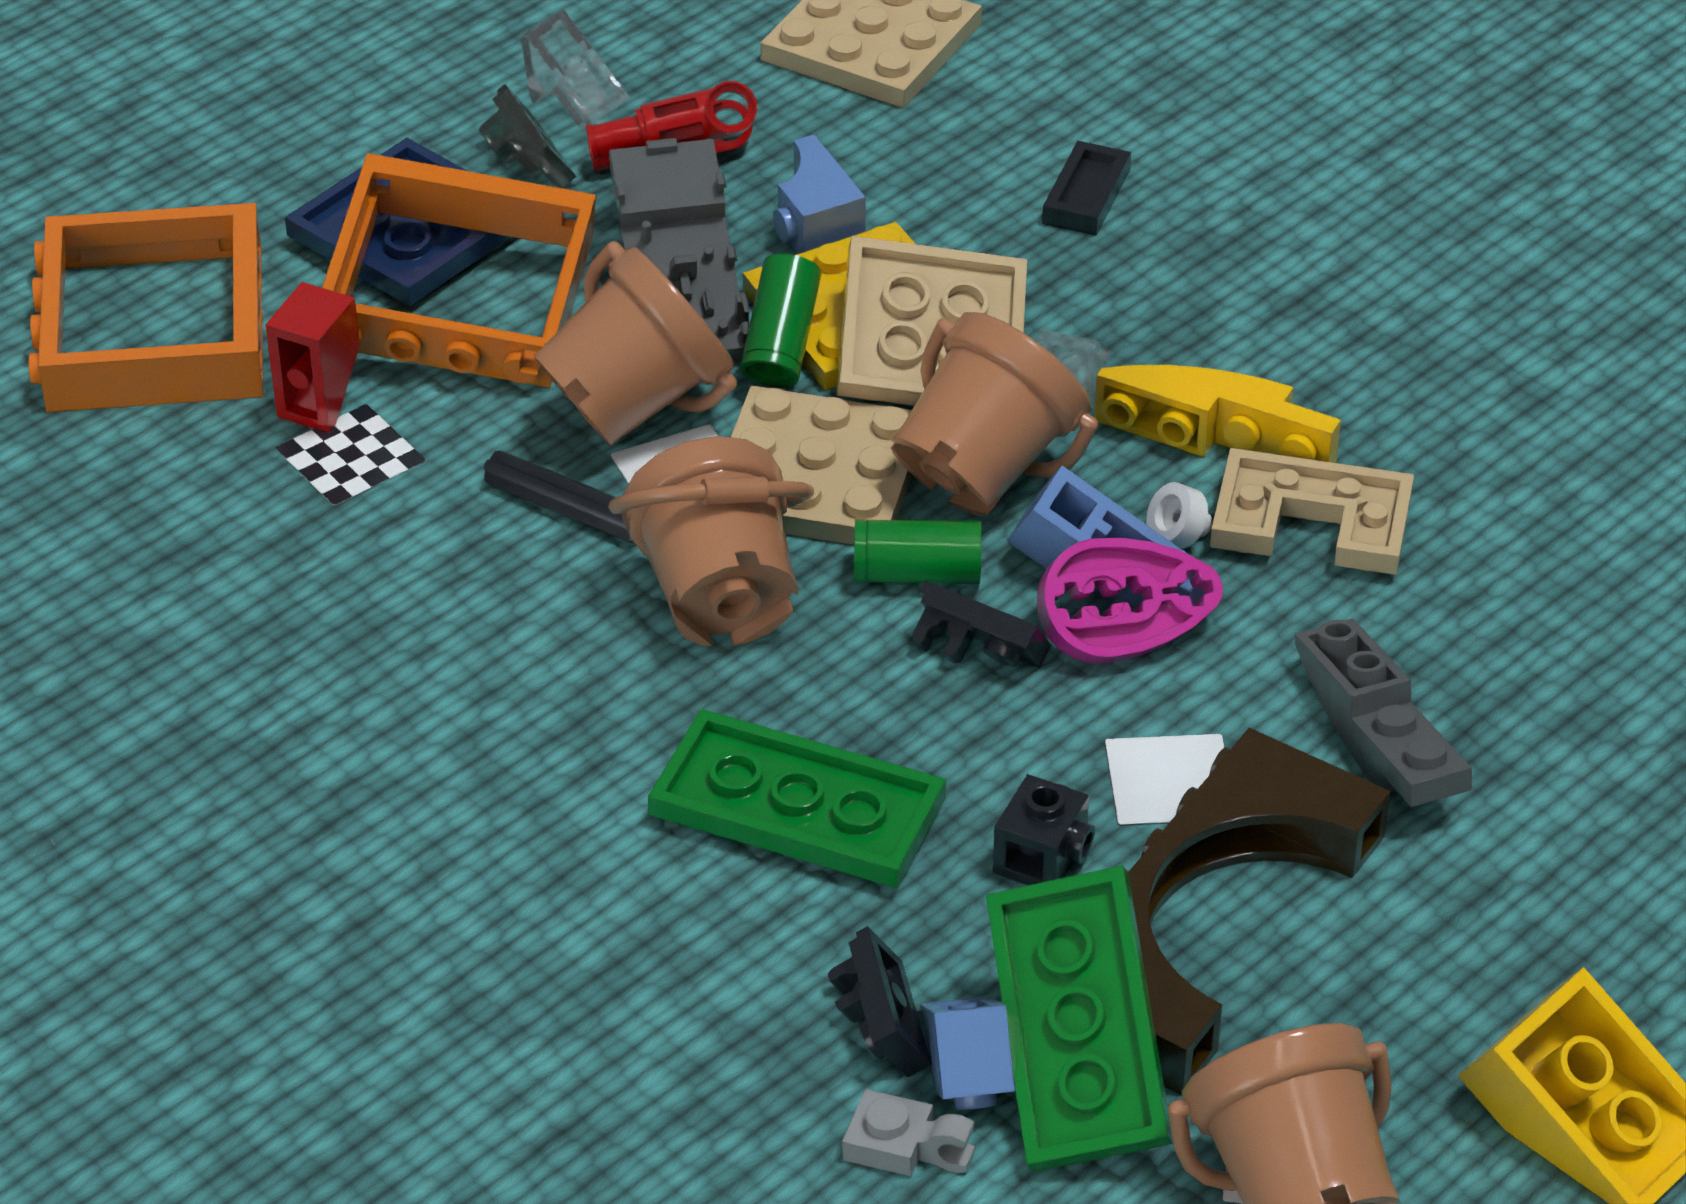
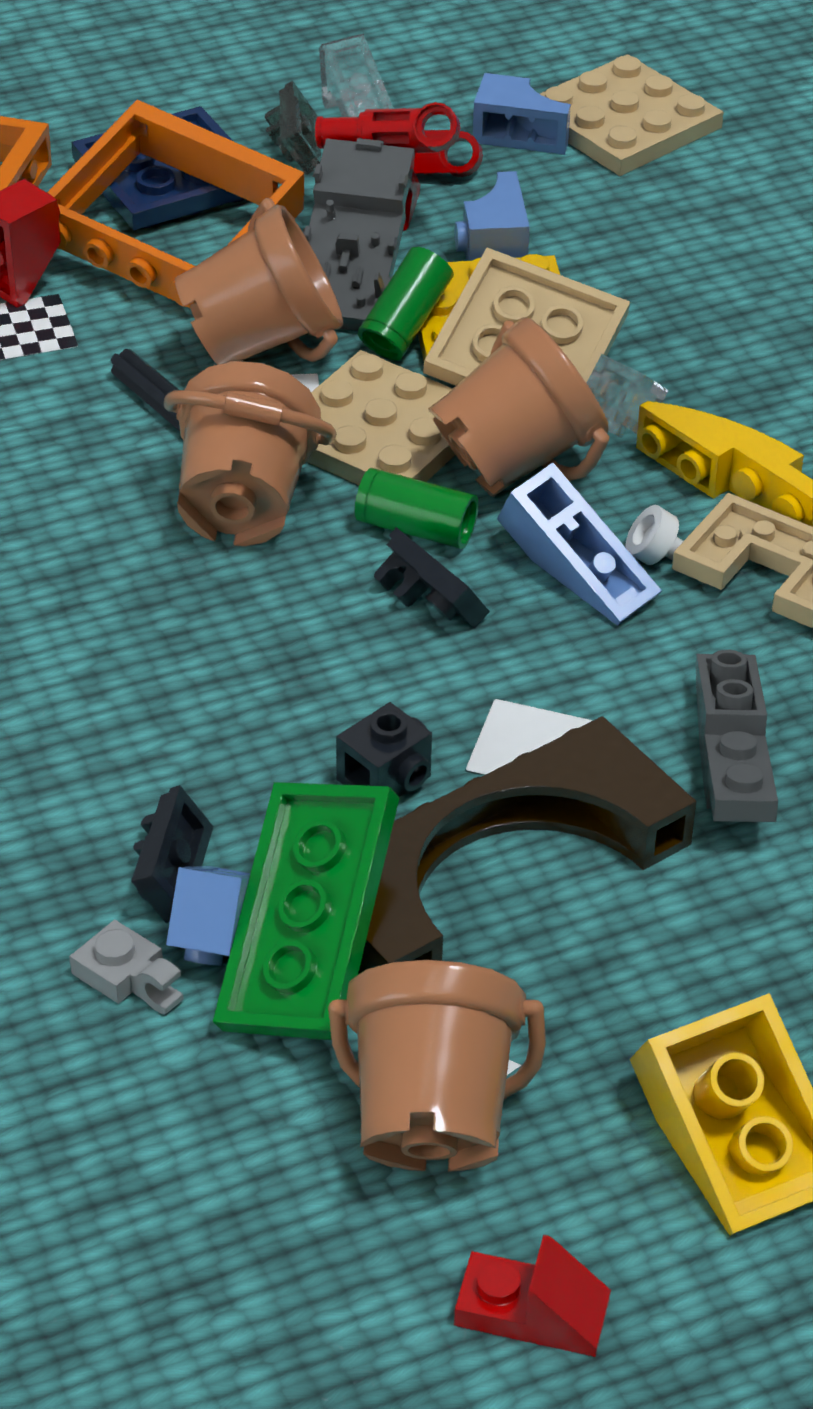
camera: 20 degrees right, 0 degrees up
(770, 62) = (518, 117): none -> medium blue arch
(798, 797) = (204, 674): green plate -> none
(1086, 188) = (732, 267): black tile -> none
(1110, 565) = (562, 554): dark pink piece -> none

